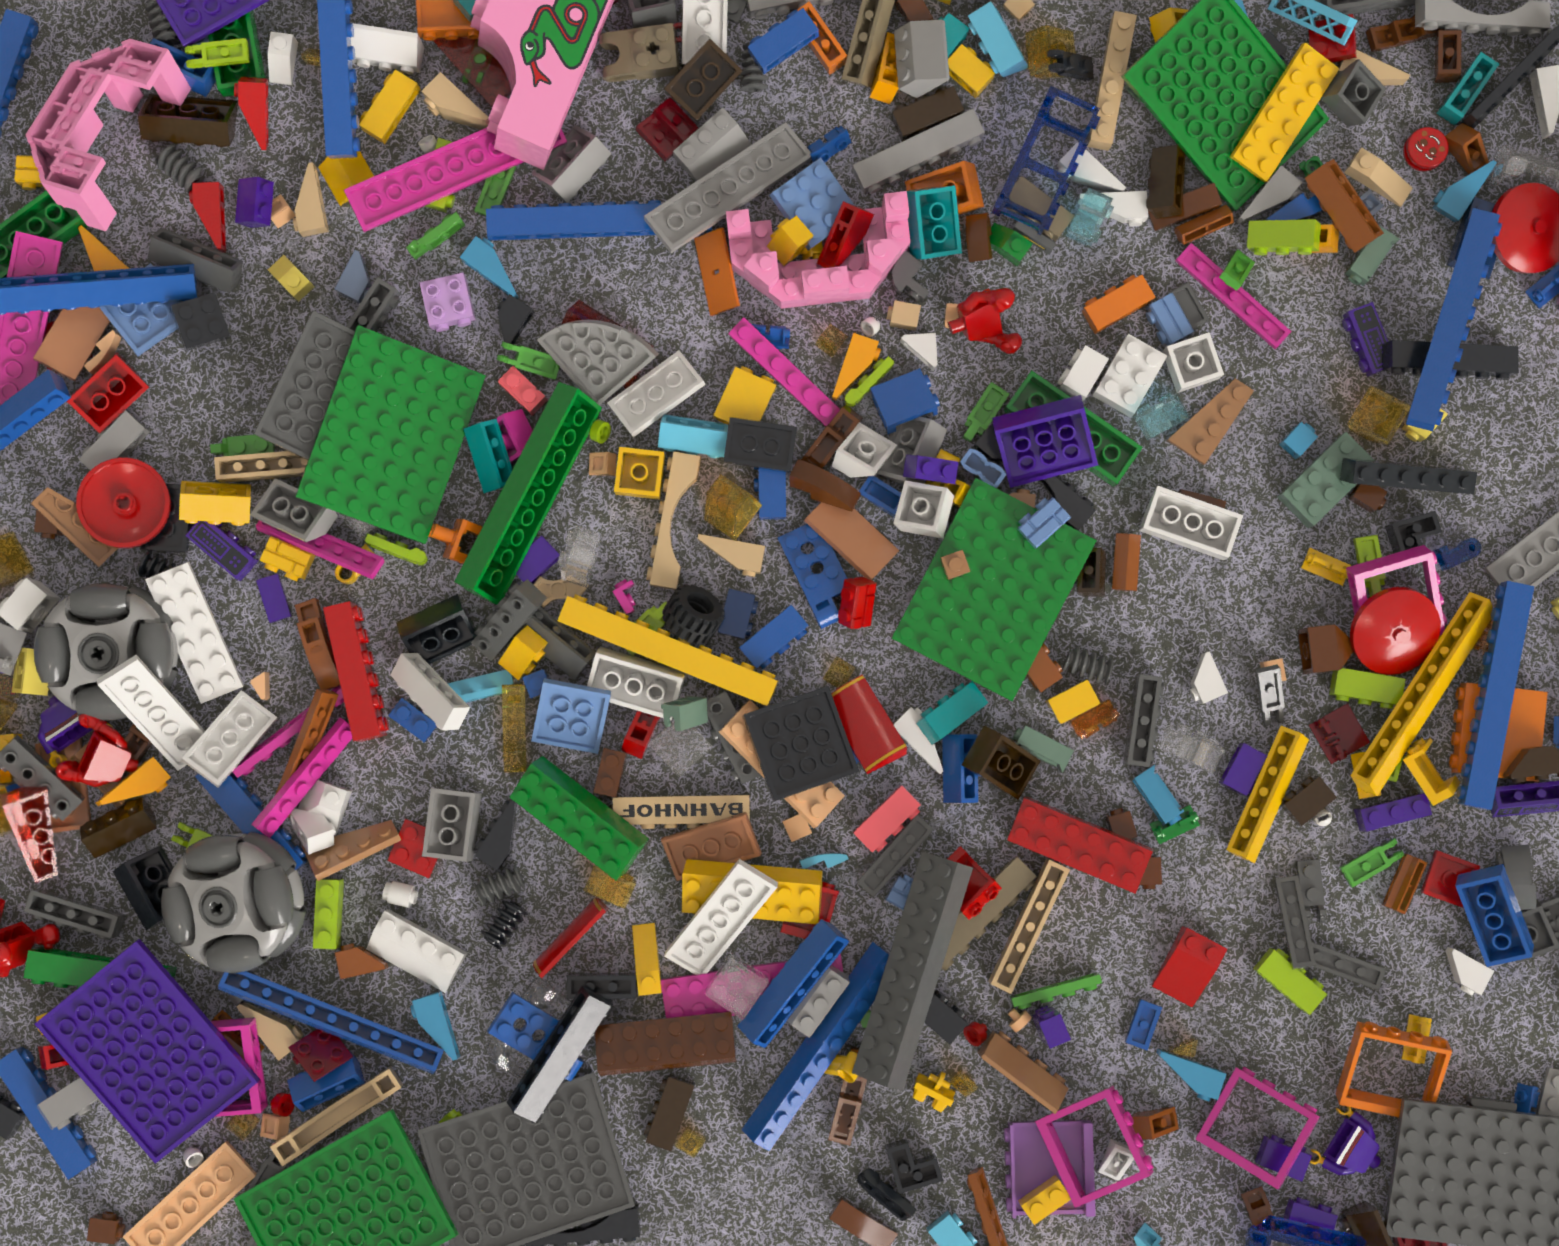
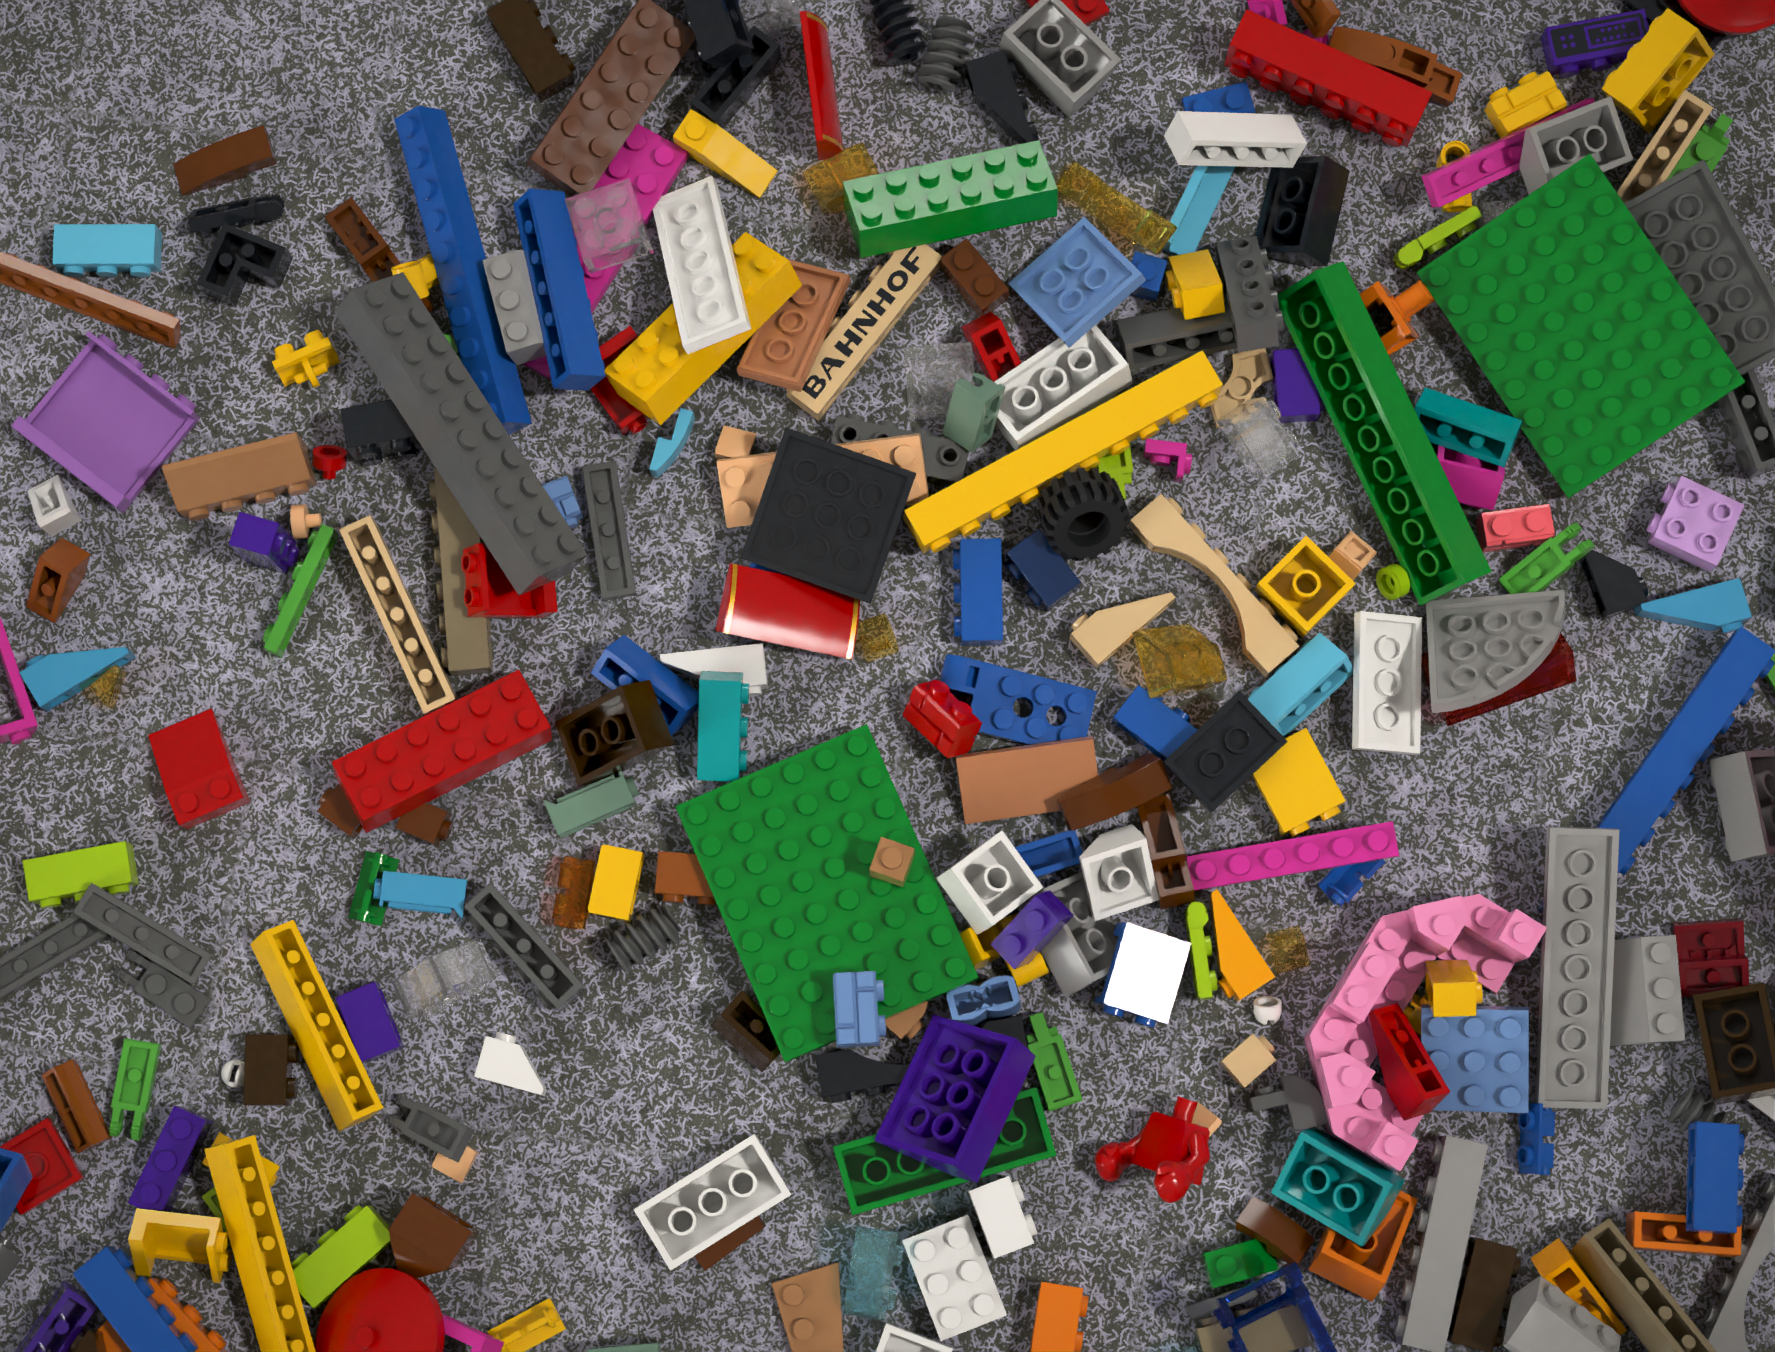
camera: 135 degrees right, 5 degrees down
(274, 598) = (1489, 58): dark purple tile -> none
(690, 1142) = (478, 46): clear yellow slope -> none
(714, 256) = (1461, 866): orange piece -> none
(887, 819) = (658, 553): coral brick -> none
(923, 347) = (1189, 1052): white slope -> none
(963, 1084) = (285, 402): clear yellow slope -> none
(1044, 1199) = (78, 383): yellow brick -> none
(1063, 1163) = (103, 437): dark pink window -> none
(1126, 562) = (730, 1086): dark orange piece -> none
(1143, 1024) = (176, 661): blue plate -> none
(1339, 733) = (315, 1176): dark red hinge -> none

